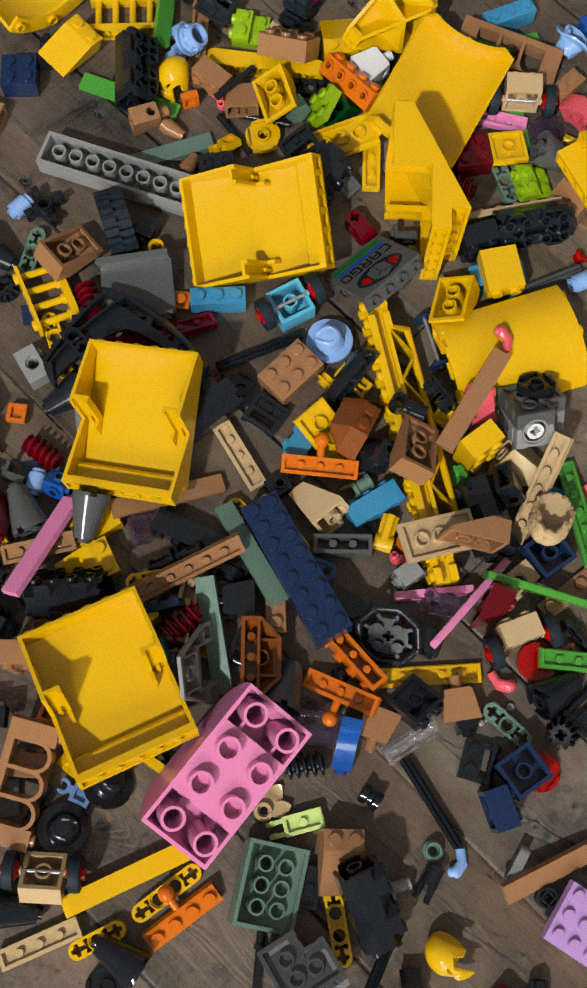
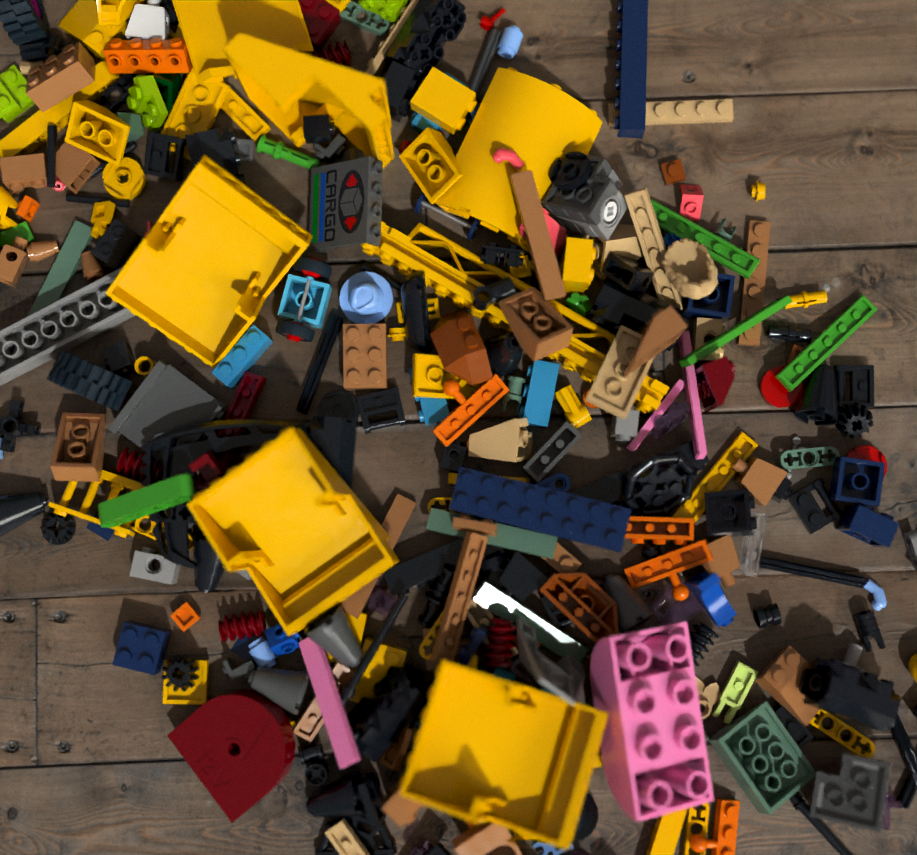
camera: 45 degrees left, 10 degrees up
(31, 244) = (32, 464): sand green beam -> none
(60, 553) = (349, 689): none -> black bar
(69, 317) = (146, 501): none -> bright green beam
(127, 331) = (208, 466): none -> dark red panel
(182, 301) = (213, 386): orange plate -> none
(239, 456) = (397, 464): tan plate -> none
(249, 542) = (465, 523): none -> medium nougat plate
(359, 227) = (291, 177): dark red piece -> none
(370, 208) = (279, 150): none -> bright green pin
(396, 558) = (601, 417): coral arm -> none
(406, 214) = (318, 129): none -> black brick
(439, 850) = (855, 605): sand green plate -> none
(501, 684) = (774, 431): coral arm -> none
(519, 631) = (750, 379): brick -> none

